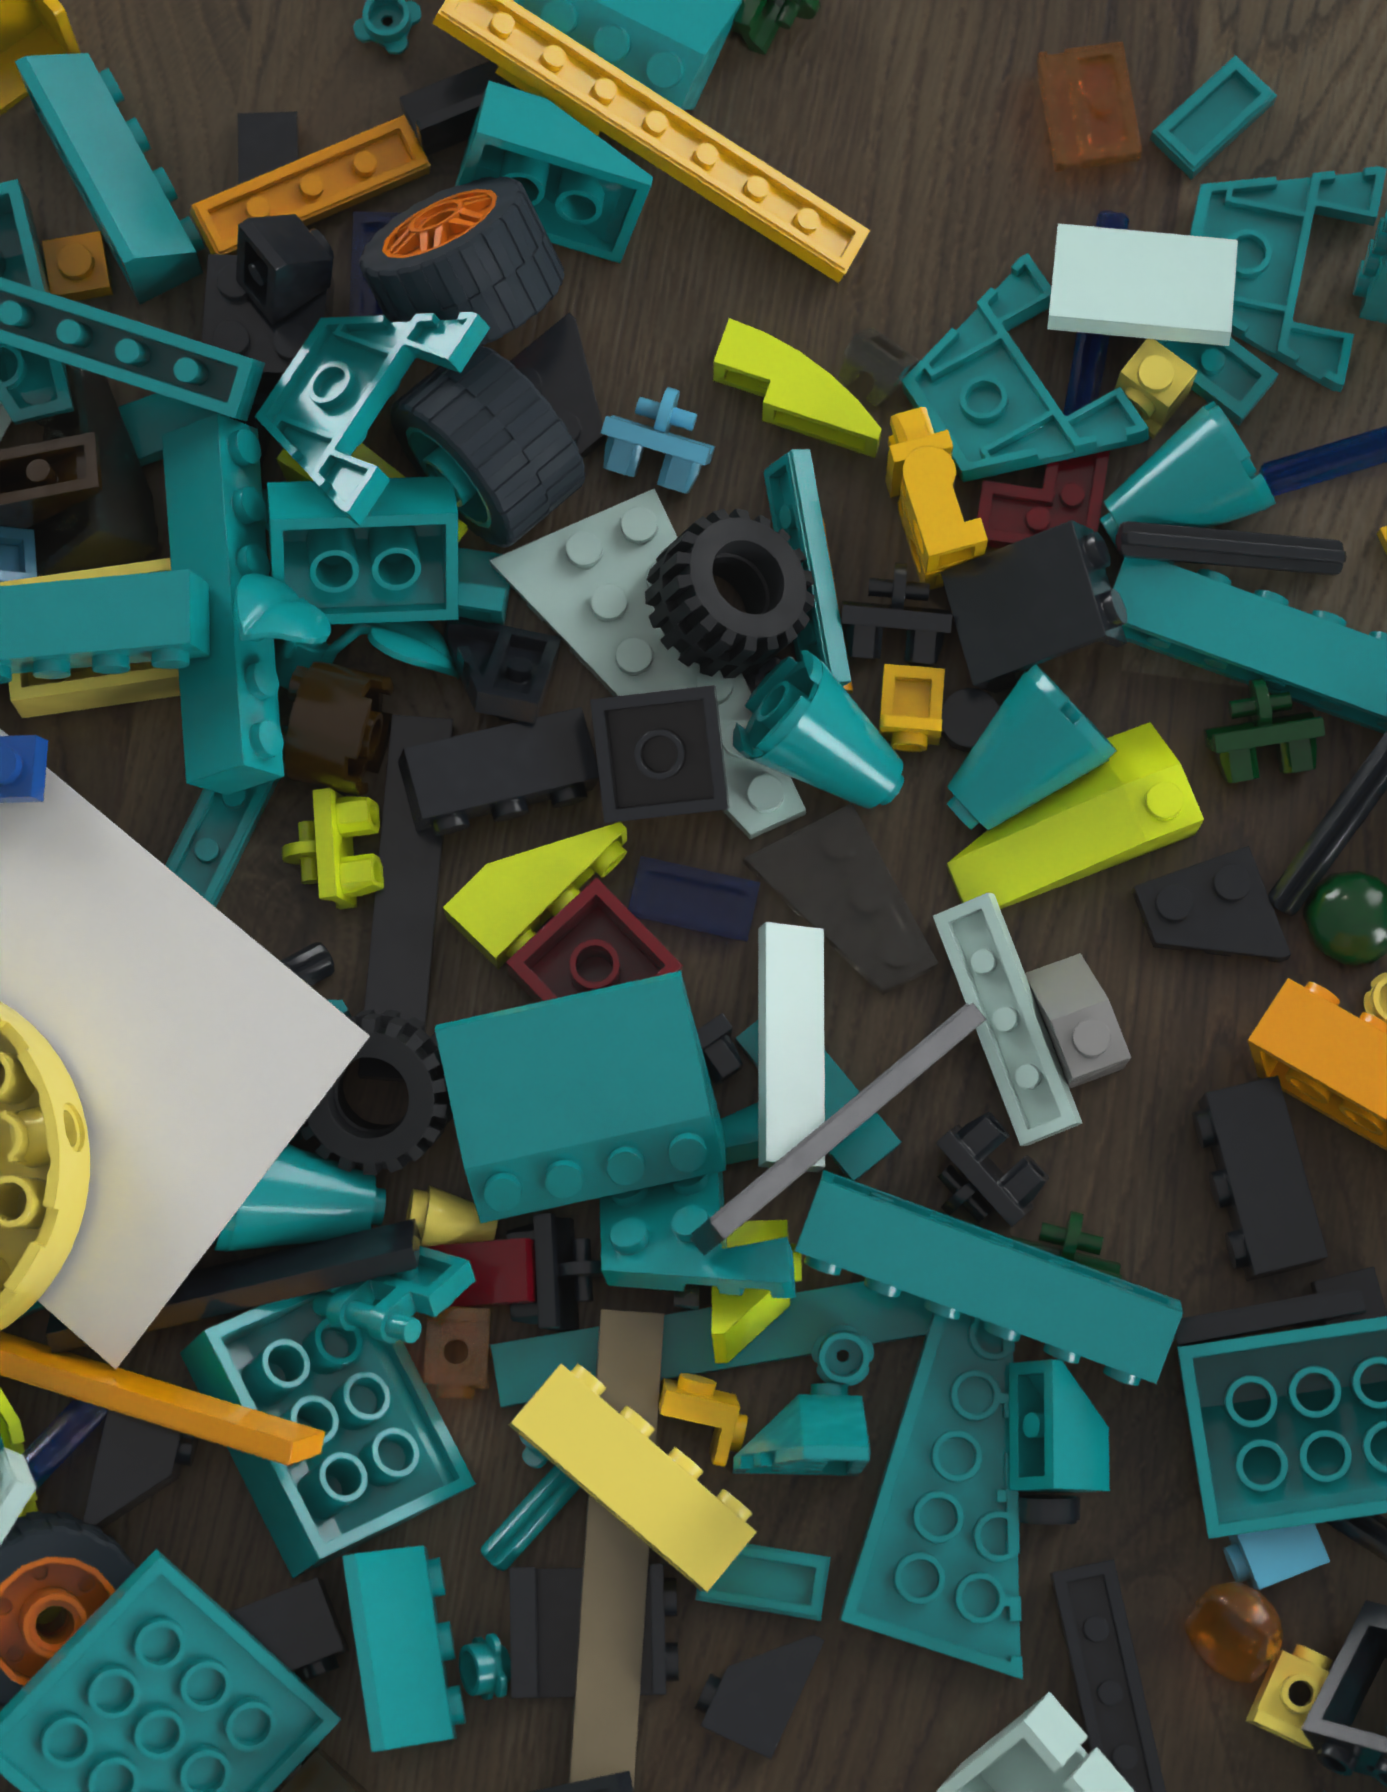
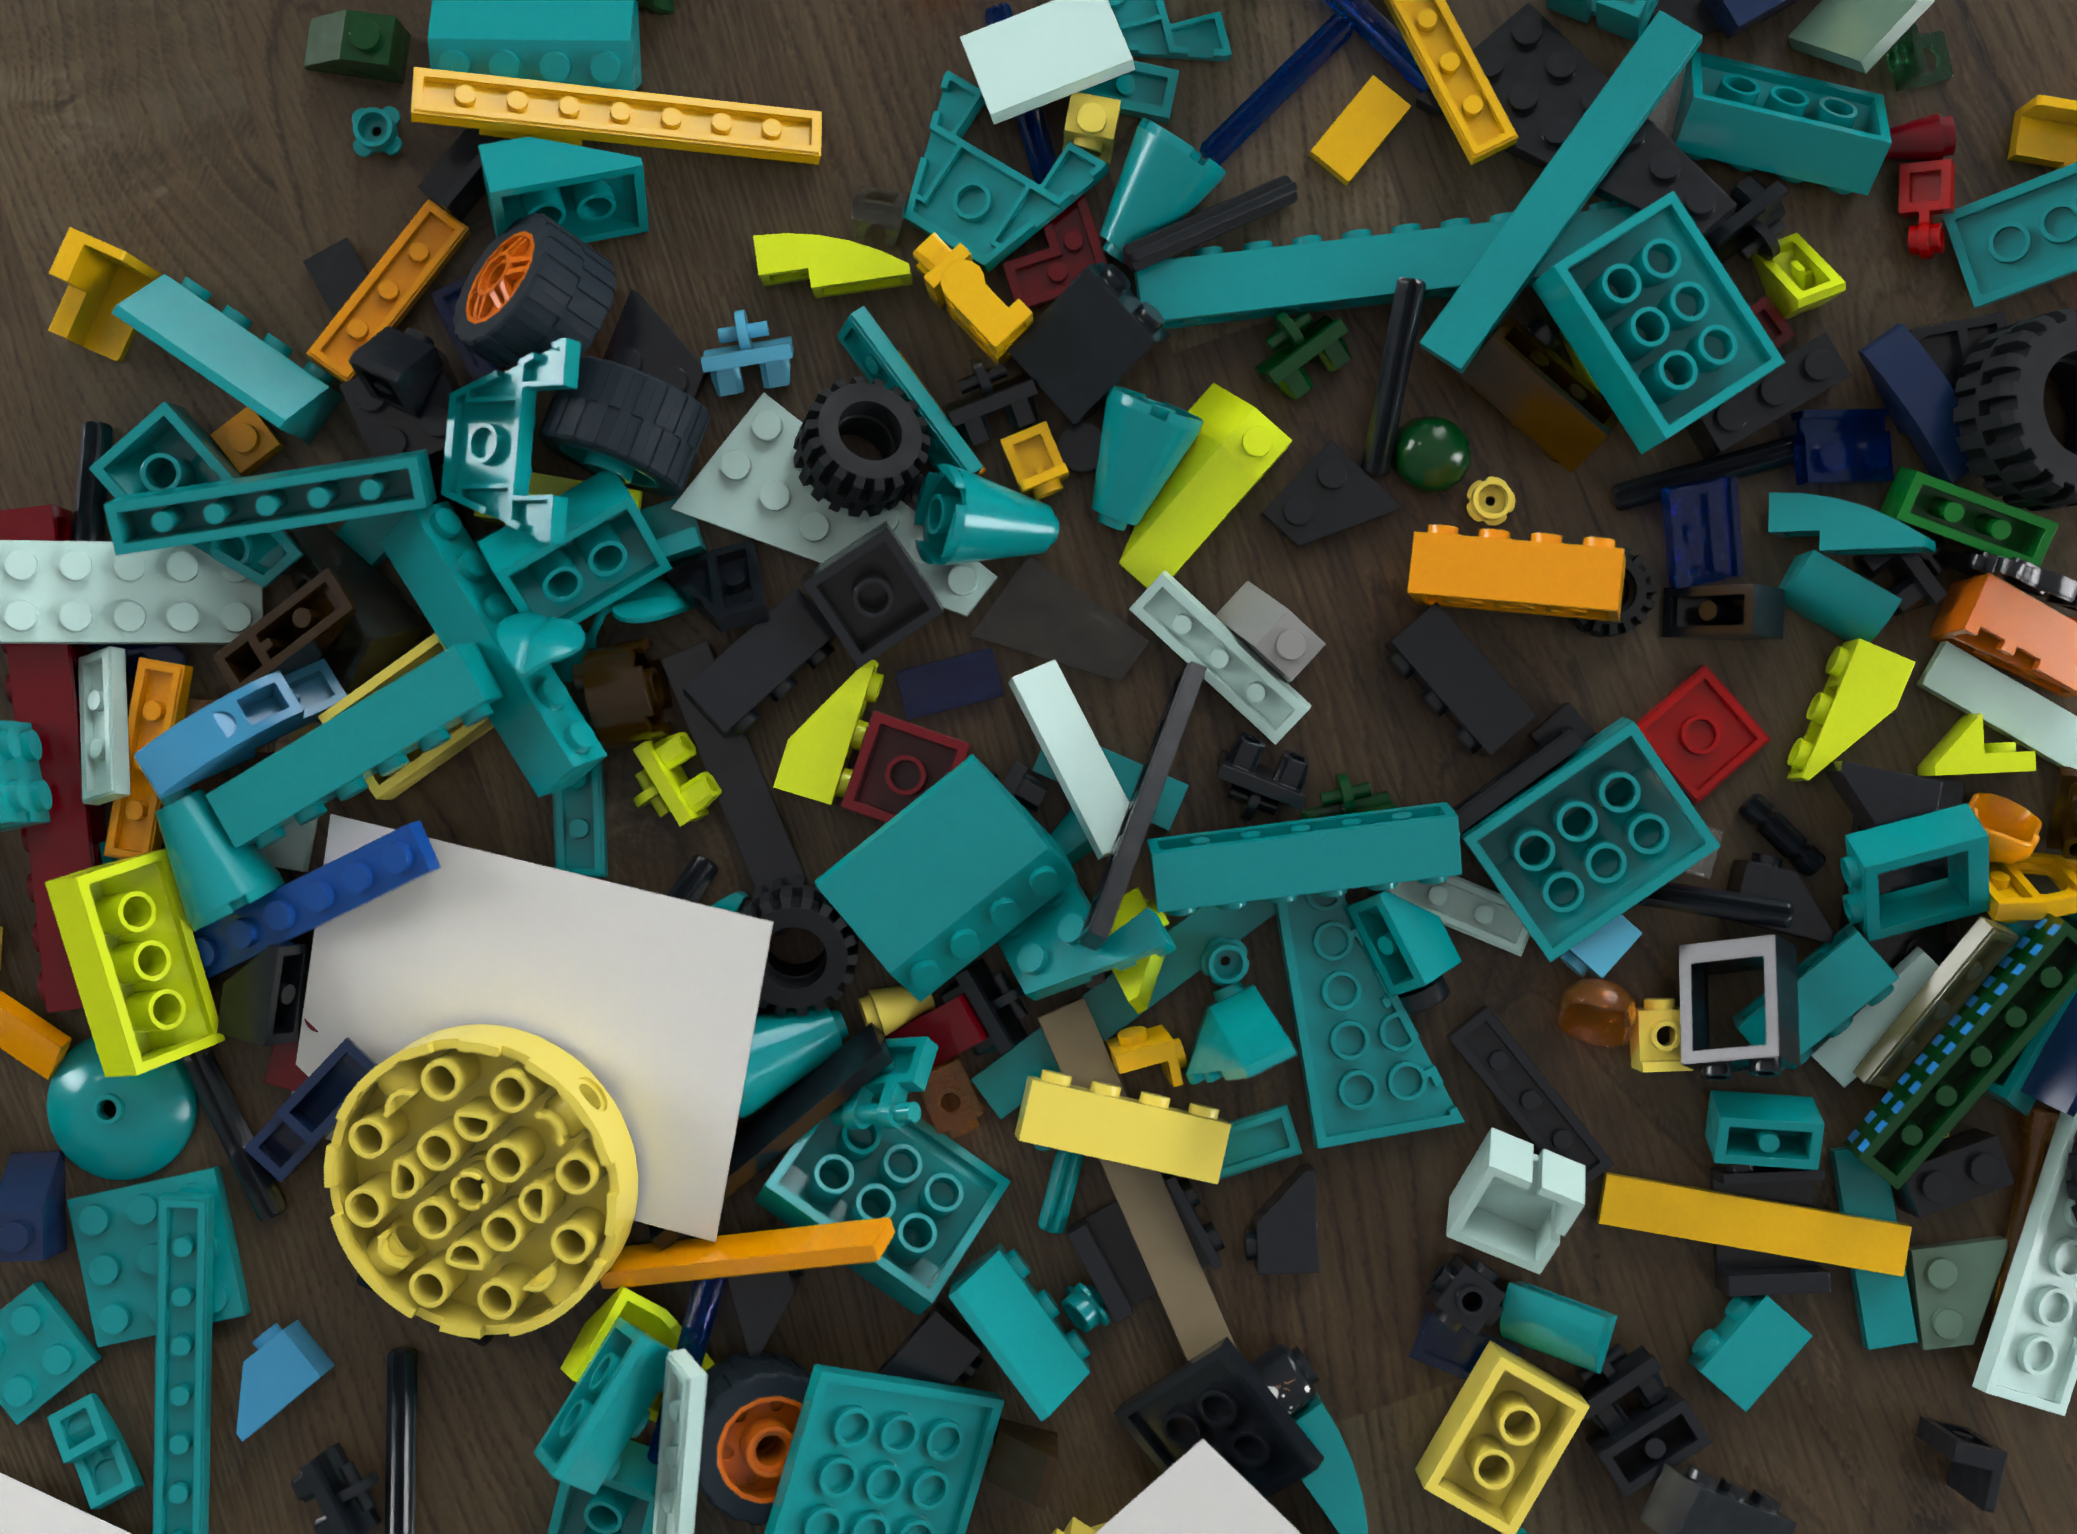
camera: 25 degrees left, 10 degrees up
(1144, 1440) = (1469, 910): none -> light aqua tile

